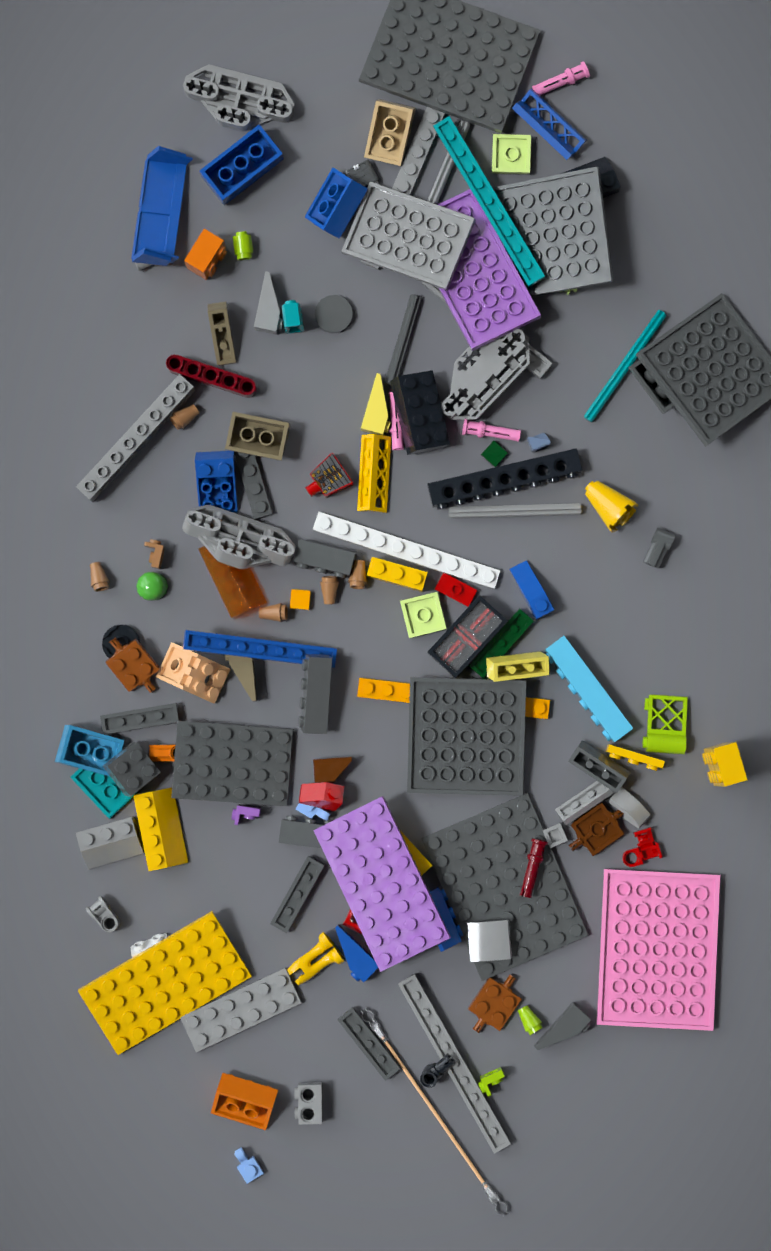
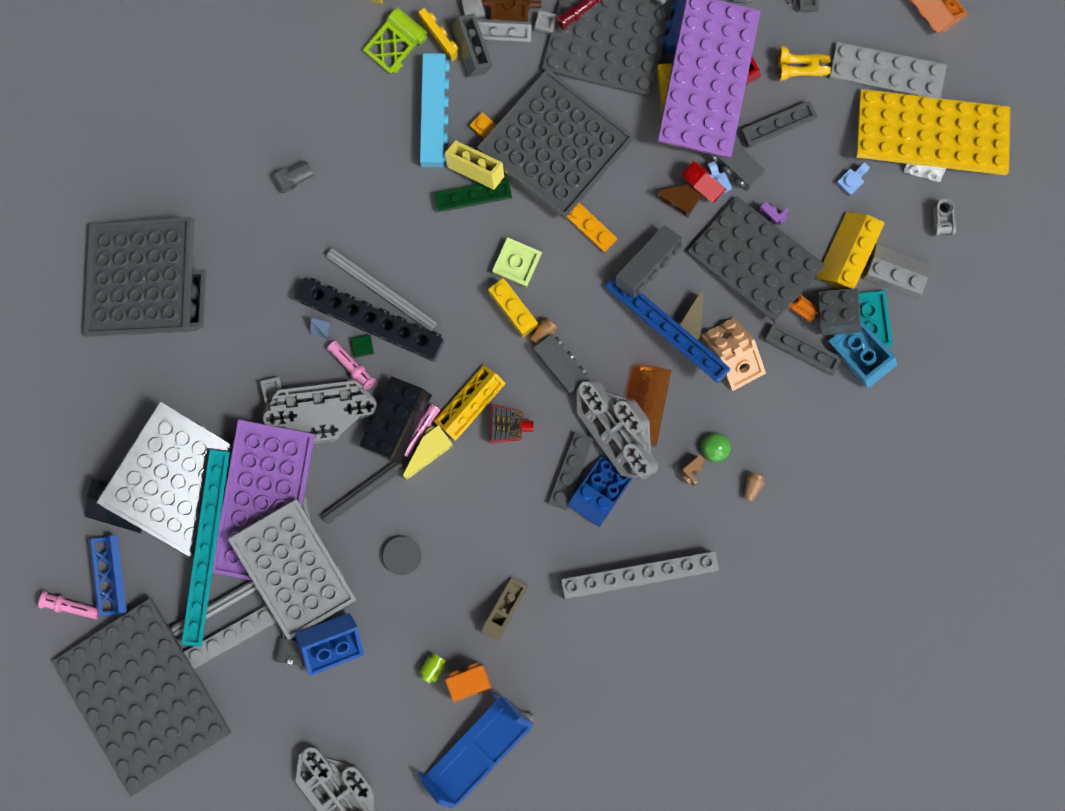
camera: 145 degrees left, 5 degrees down
(123, 634) = (774, 420): black tile -> none
(132, 665) = (778, 394): dark orange plate -> none
(183, 417) = (587, 563): medium nougat cone -> none
(202, 891) = (852, 180): none -> light blue plate
(218, 382) = (532, 573): dark red beam -> none
(241, 164) = (381, 736): blue brick -> none
(257, 436) = (540, 499): dark tan slope -> none
(268, 314) = (453, 596): light grey slope -> none
(274, 612) = (633, 352): medium nougat cone -> none
(292, 317) = (437, 575): teal brick -> none
(300, 599) = (604, 347): light orange tile -> none
(329, 589) = (574, 339): medium nougat cone -> none
(358, 959) = (767, 41): blue slope -> none
(389, 132) = (240, 670): tan slope -> none
(406, 550) = (491, 323): white plate -> none
(455, 589) = (476, 263): red plate -> none
(467, 636) = (496, 217): clear brick -> none
(511, 154) = (157, 576): yellowish green plate -> none
(531, 590) = (417, 217): blue slope -> none
(610, 504) = (304, 236): yellow cone -> none
(624, 366) = (205, 337): teal axle -> none

